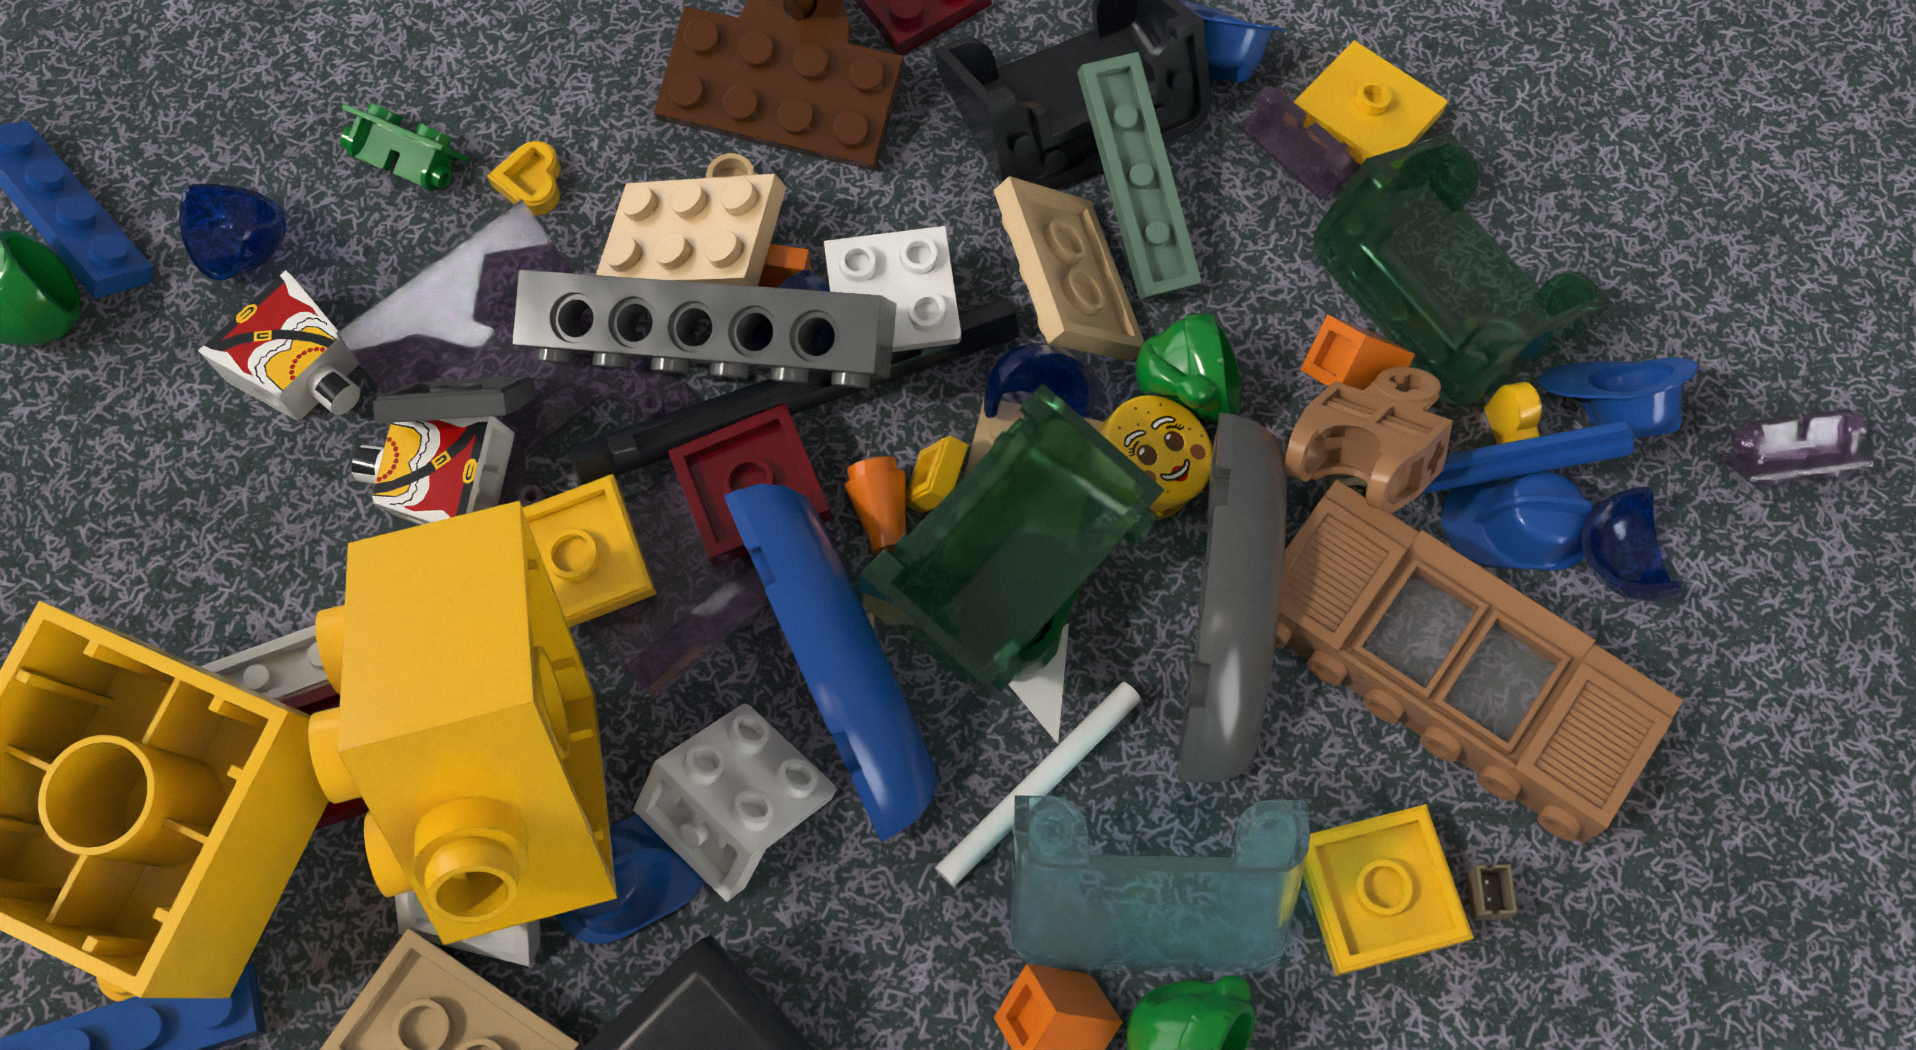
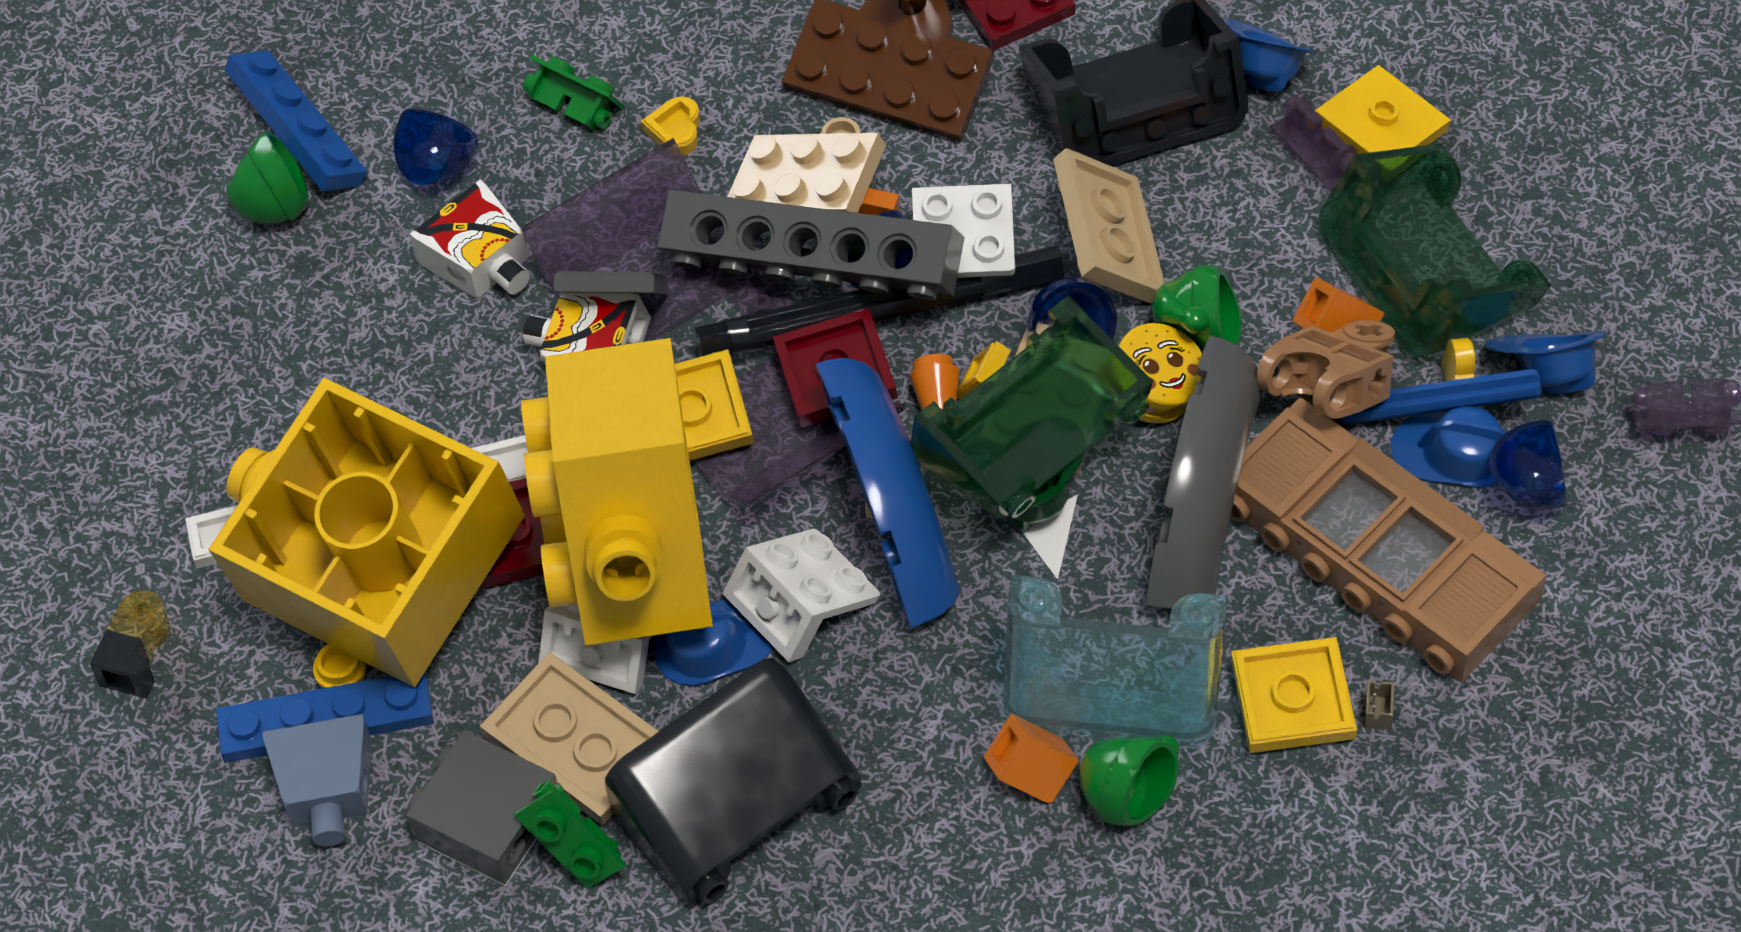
camera: 10 degrees right, 10 degrees down
(1038, 782) = (1065, 582): white bar -> none
(1139, 176) = (1175, 159): sand green plate -> none

